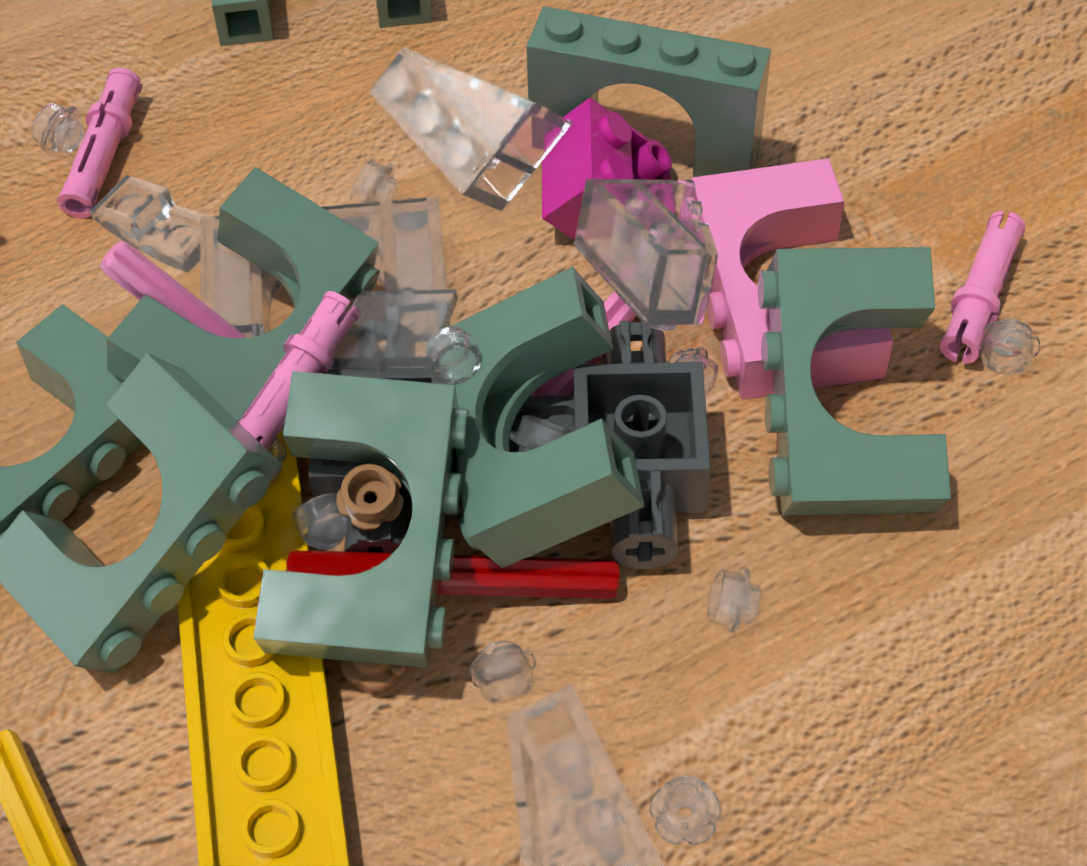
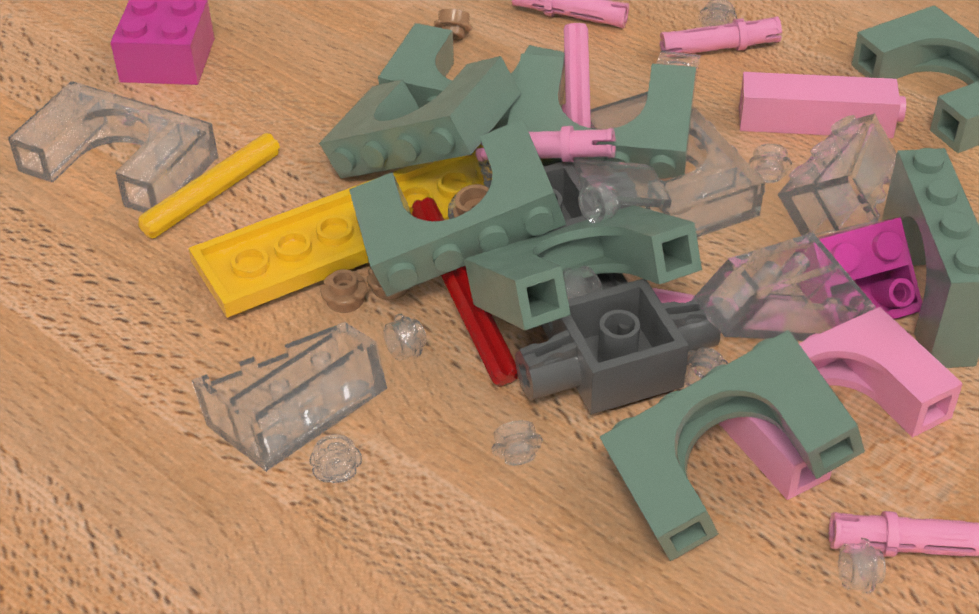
camera: 70 degrees right, 10 degrees down
(300, 98) = (816, 102): none -> bright pink brick
(378, 738) = (344, 291): none -> medium nougat plate

